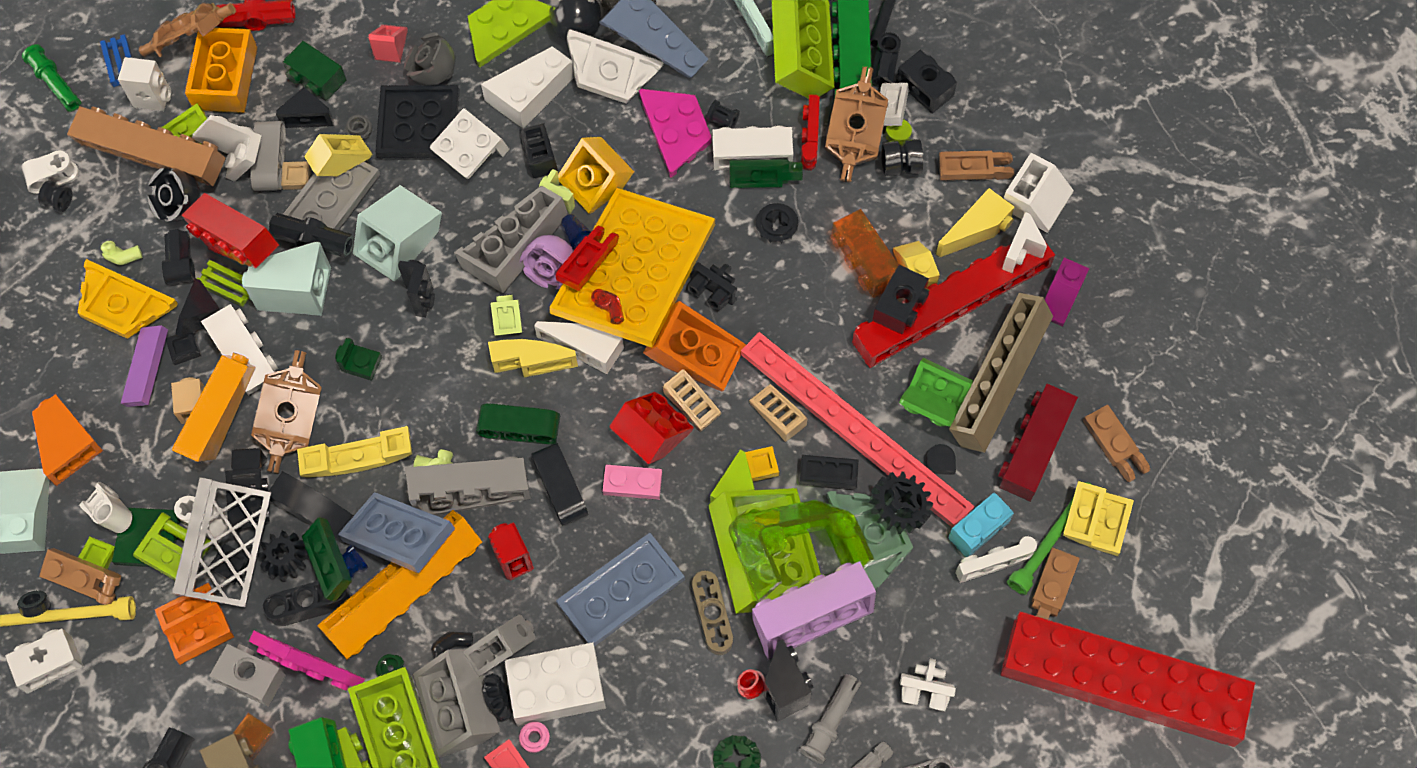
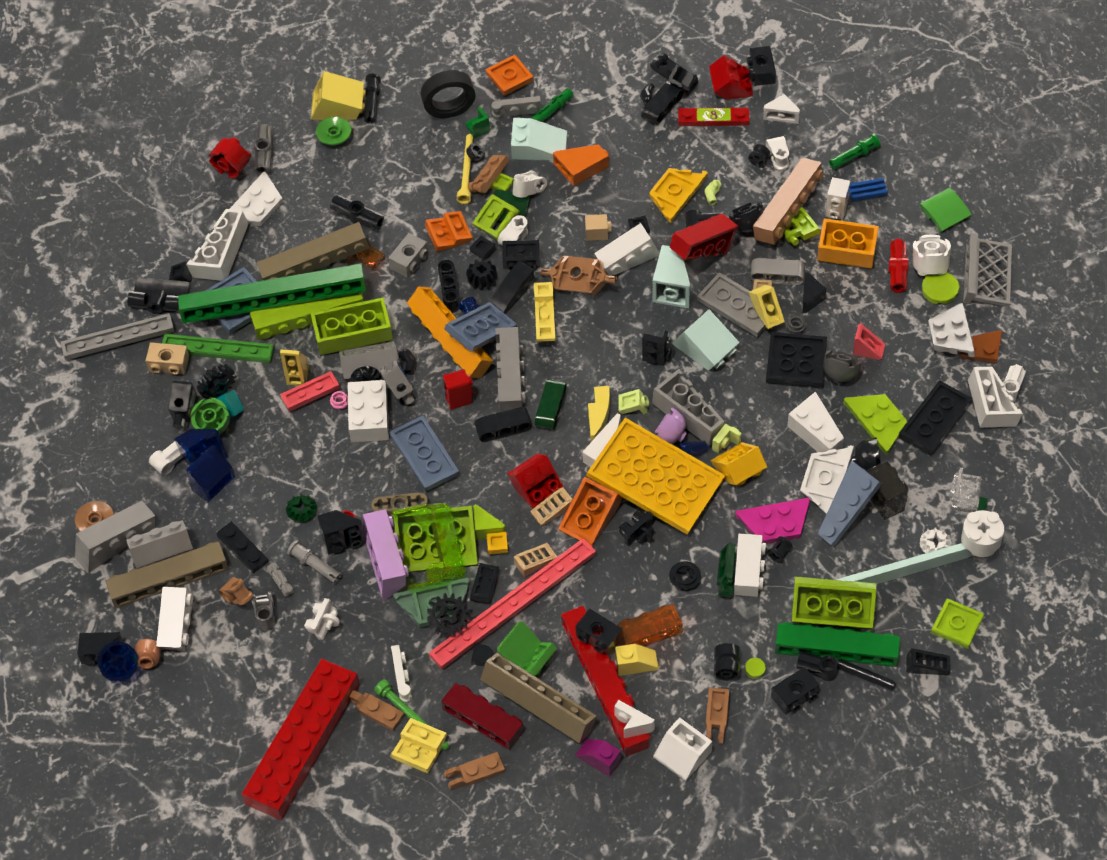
camera: 100 degrees right, 10 degrees down
(44, 660) = (438, 157): white brick -> none
(144, 366) = (626, 204): medium lavender tile -> none
(196, 308) = (659, 229): black slope -> none
(196, 537) = (496, 223): fence -> none
(202, 19) = (881, 221): medium nougat plate -> none
(215, 409) = (579, 233): light orange slope -> none
(235, 140) = (773, 252): white bracket -> none
(247, 459) = (548, 255): black slope -> none
(304, 662) = (406, 279): dark pink plate -> none
(309, 231) = (704, 289): black piece -> none
(314, 71) = (844, 298): dark green brick -> none
(326, 559) = (469, 290): dark green plate -> none
(357, 360) = (613, 318): dark green bracket -> none
(389, 660) = (399, 324): dark green plate -> none
(444, 457) = (531, 357): yellowish green arm -> none
(467, 144) = (772, 386): white bracket -> none
(543, 164) = (754, 436): black slope -> none
(586, 258) = (660, 442): red hinge -> none
(609, 303) = (620, 450): clear red arm -> none
(632, 482) = (498, 468): bright pink plate -> none
(810, 134) = (758, 606): red hinge -> none
(851, 144) = (770, 634): medium nougat plate -> none
(897, 98) = (775, 661): white plate -> none
(978, 224) = (664, 705): light yellow slope -> none
(980, 525) = (426, 667): medium azure brick -> none

